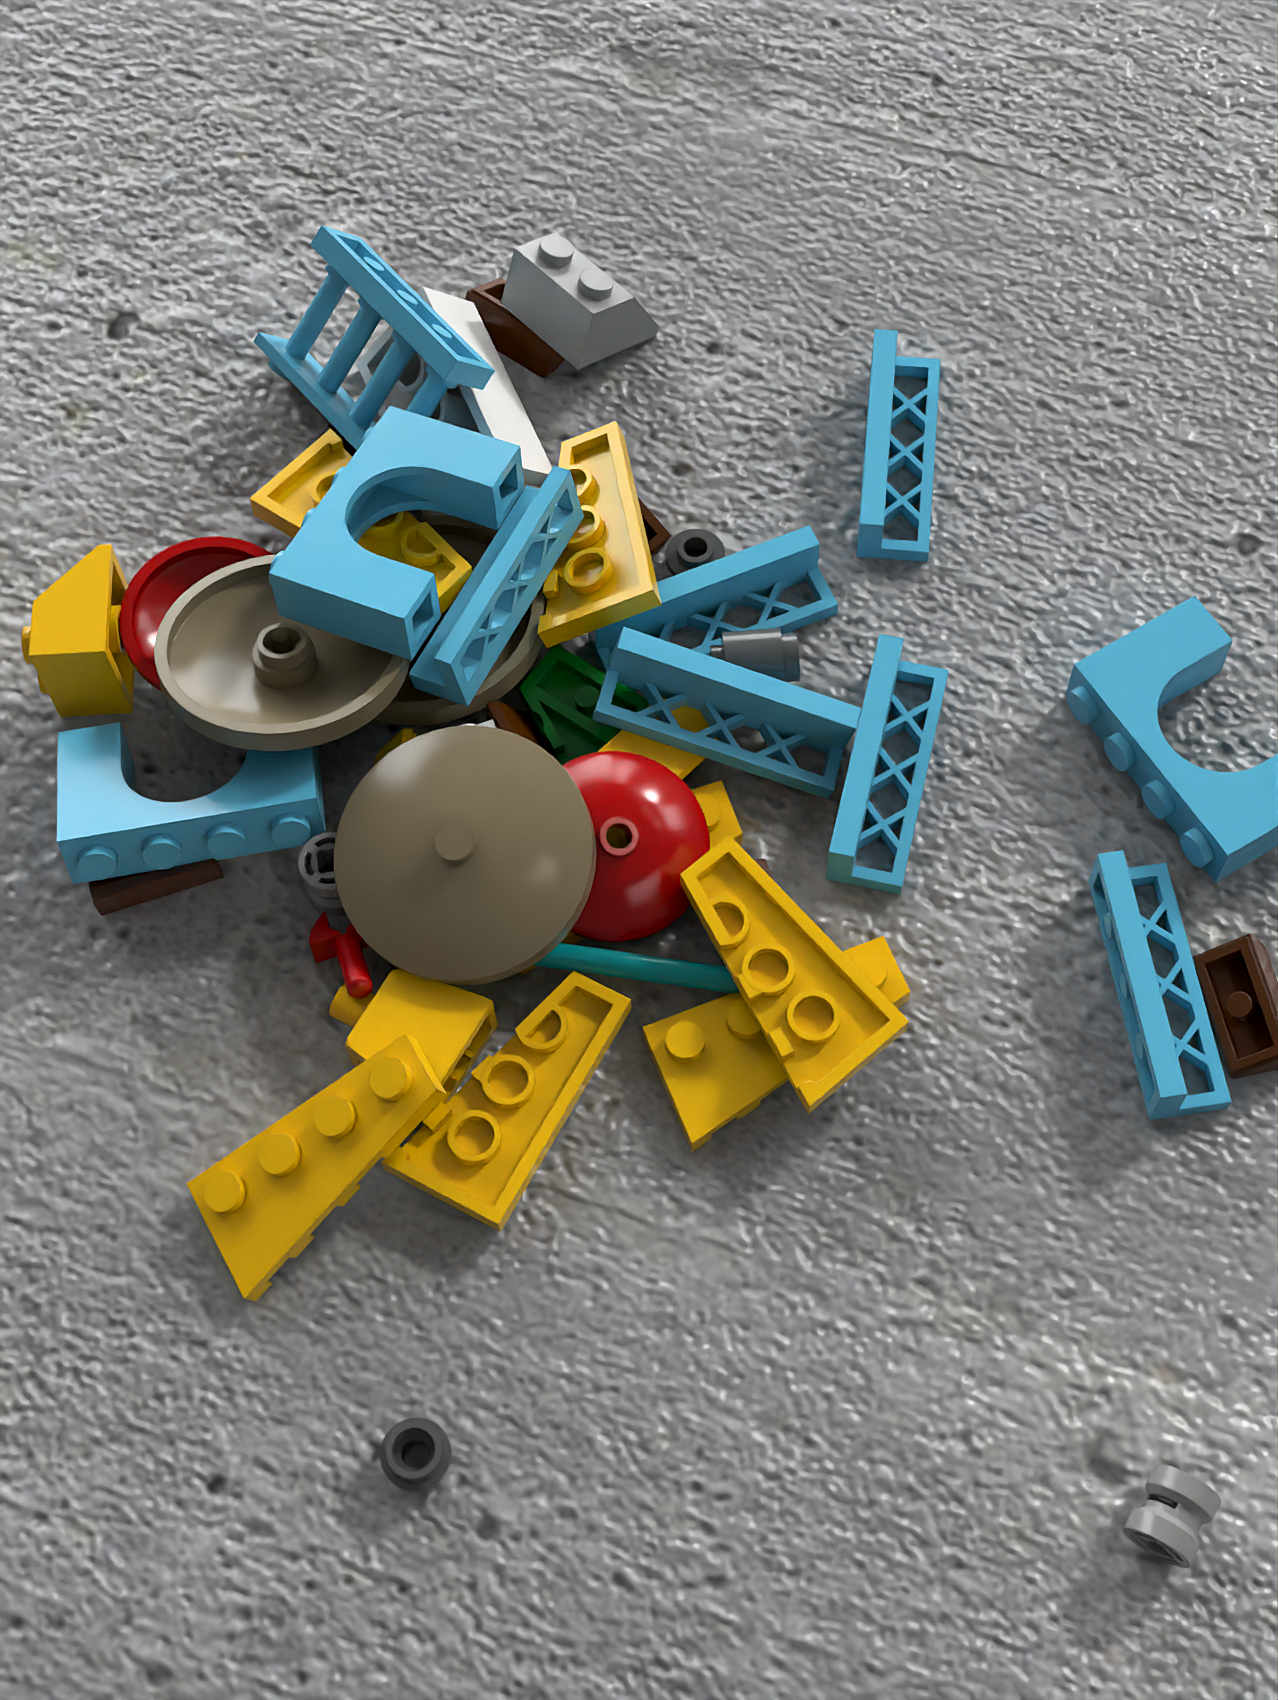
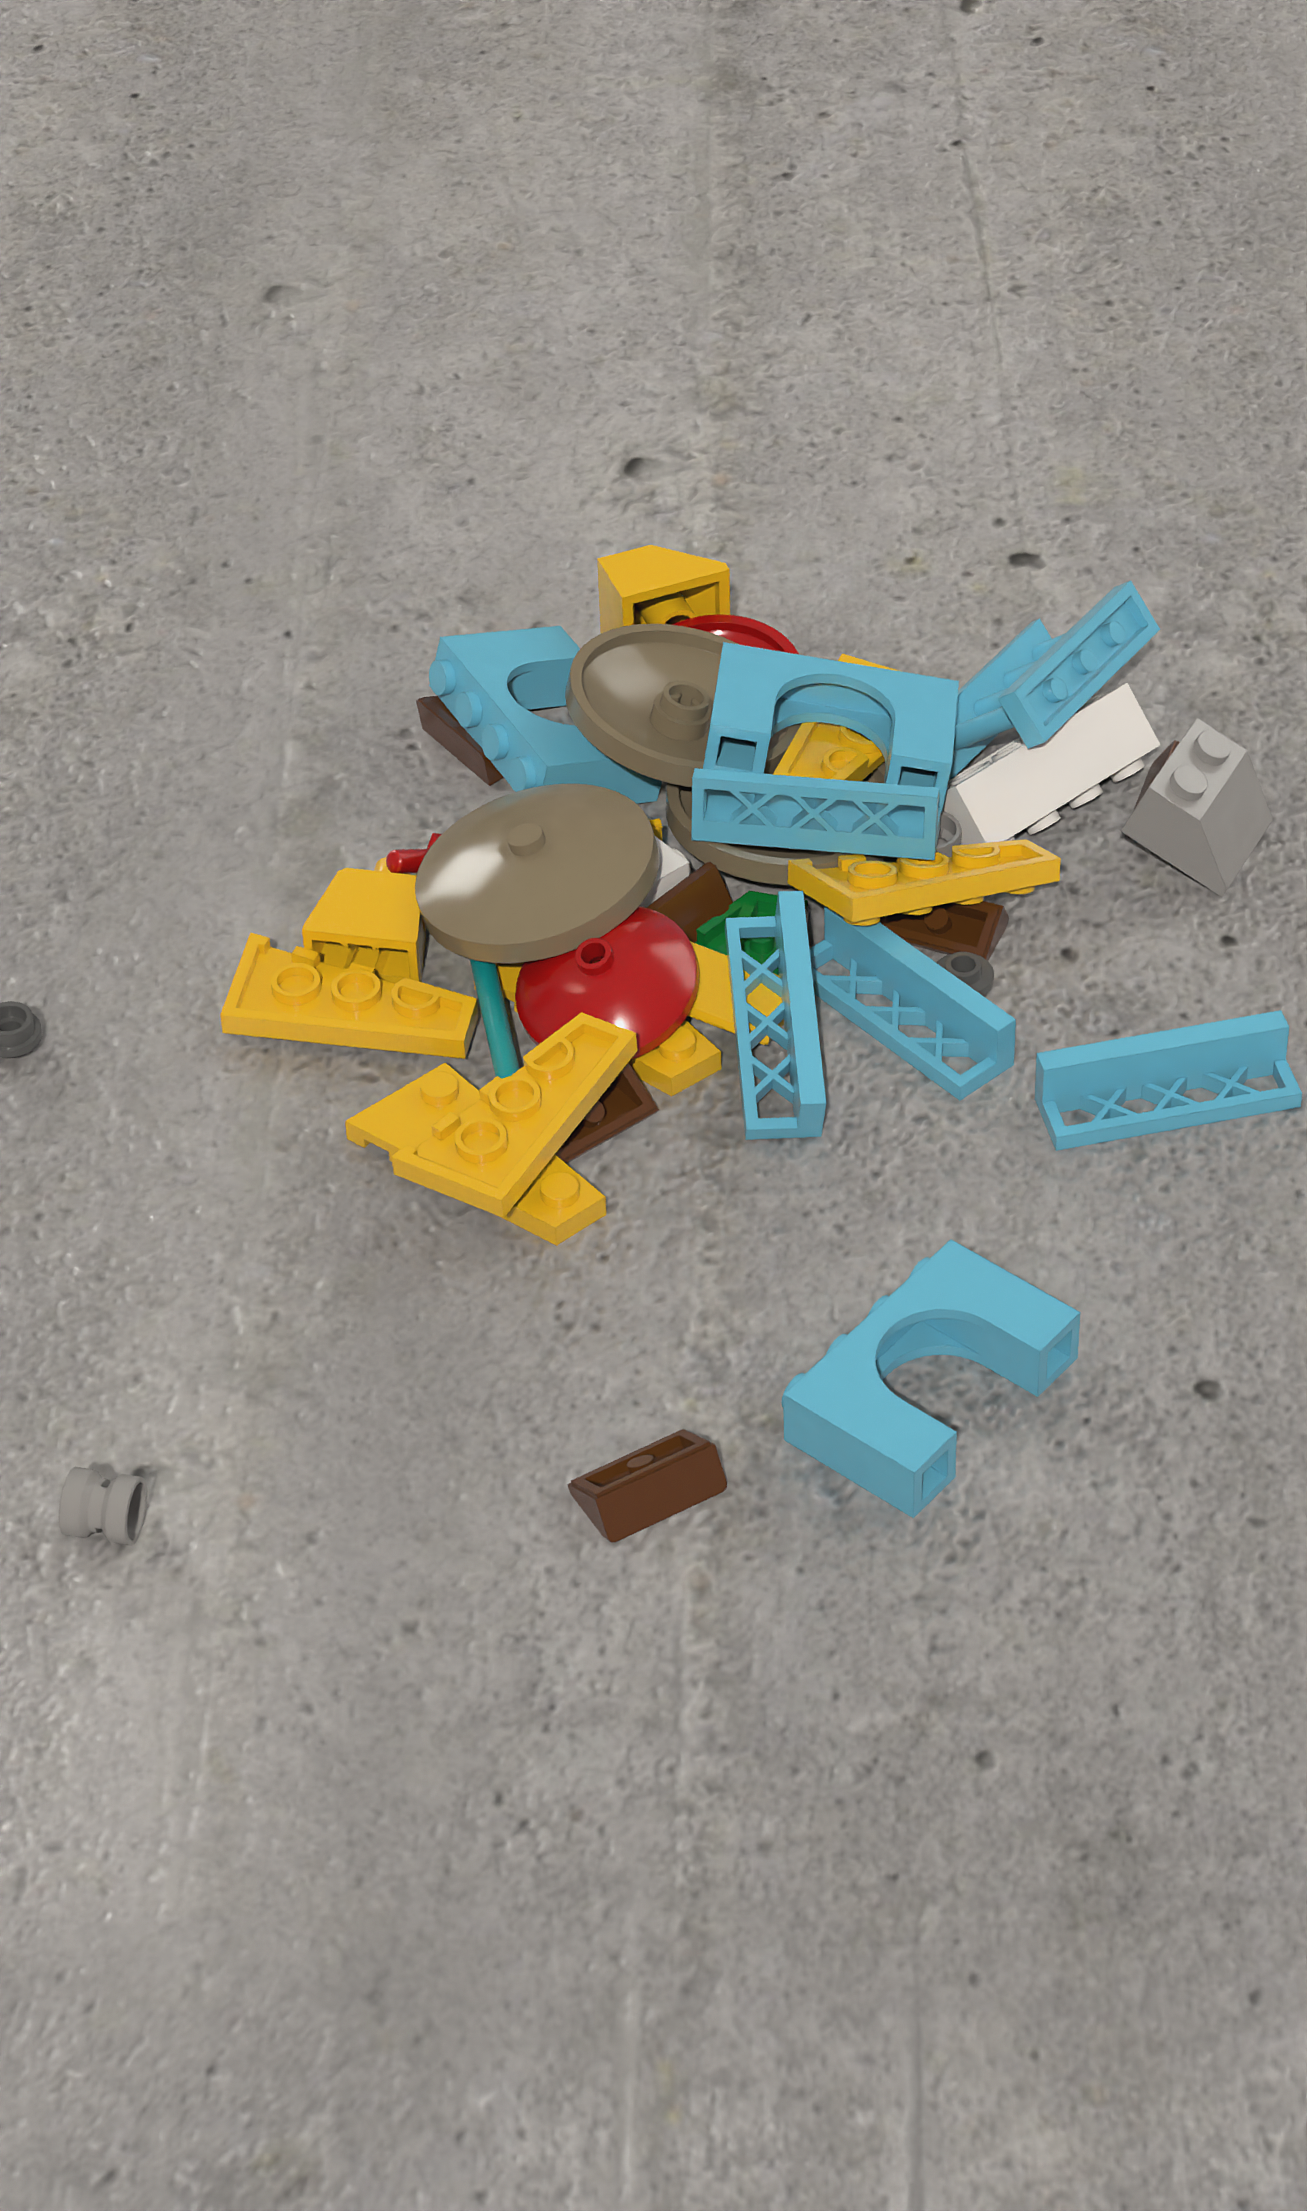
camera: 70 degrees right, 20 degrees down
(296, 1171) = (231, 883): yellow wing -> none
(762, 652) = (859, 1038): dark grey brick -> none
(866, 755) = (789, 1145): medium azure fence -> none
(1142, 990) = (627, 1387): medium azure fence -> none

